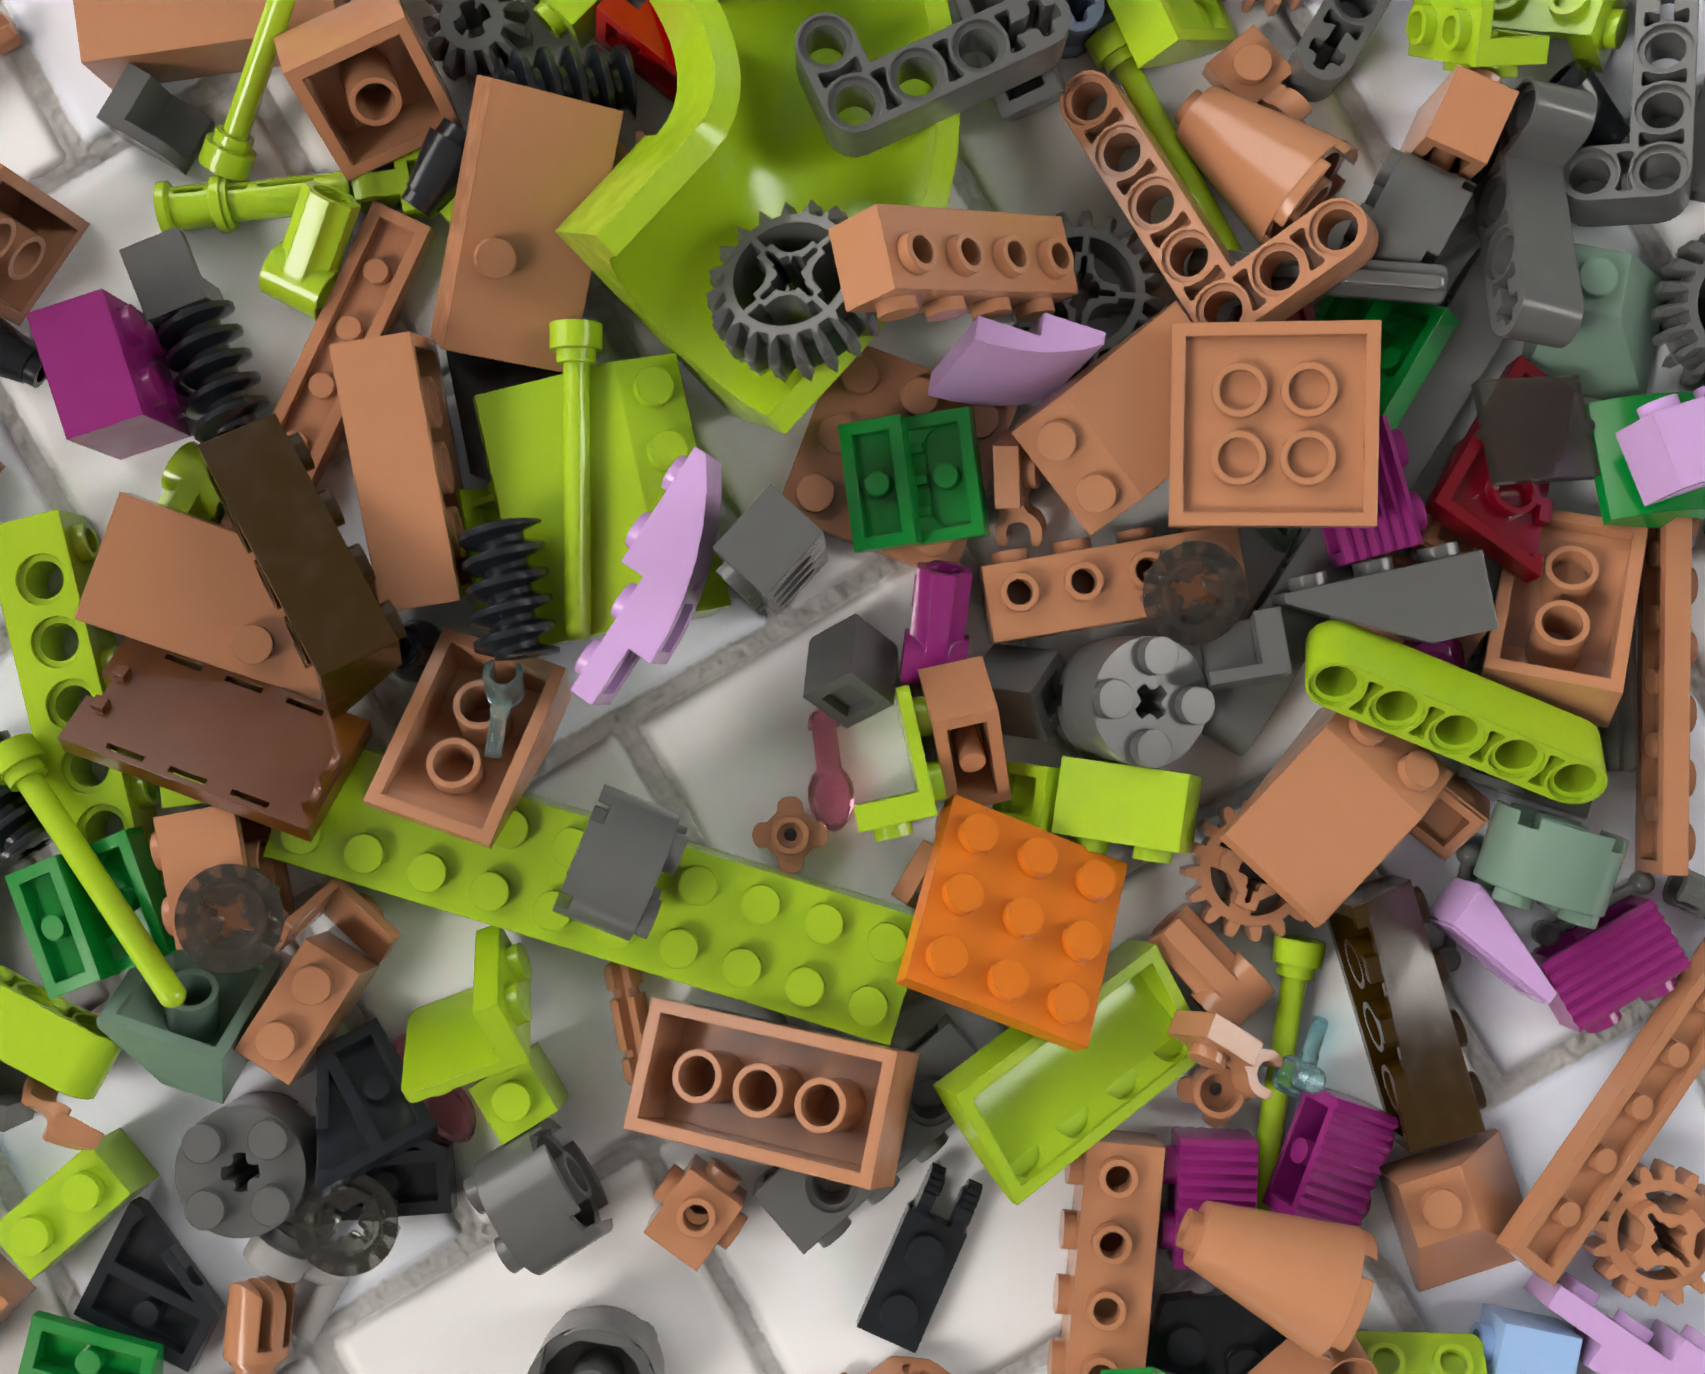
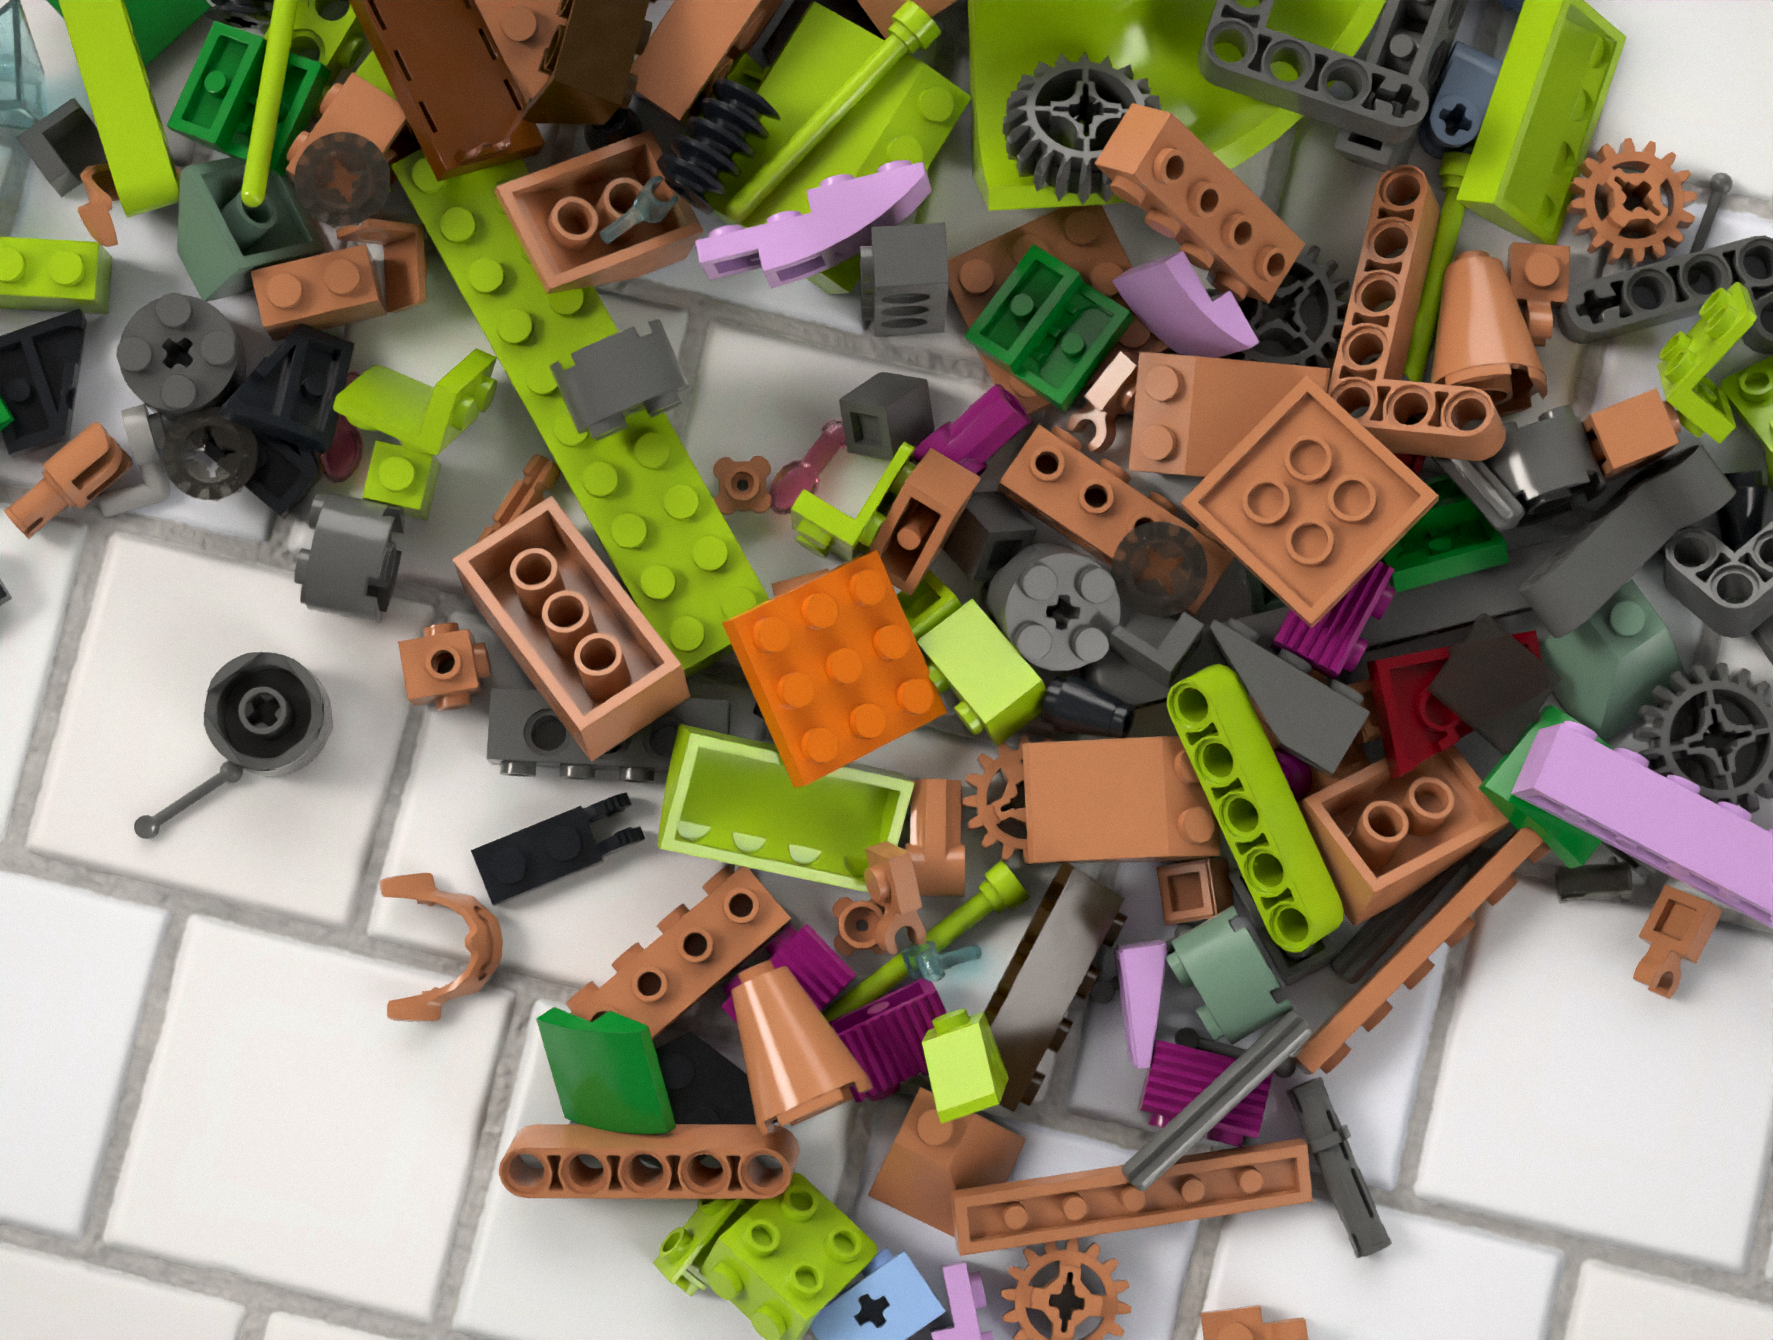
camera: 35 degrees right, 5 degrees down
(1239, 759) = (1086, 709): none -> black cone
(1435, 1152) = (963, 1065): none -> slope
(1641, 973) = (1217, 1100): none -> dark grey axle

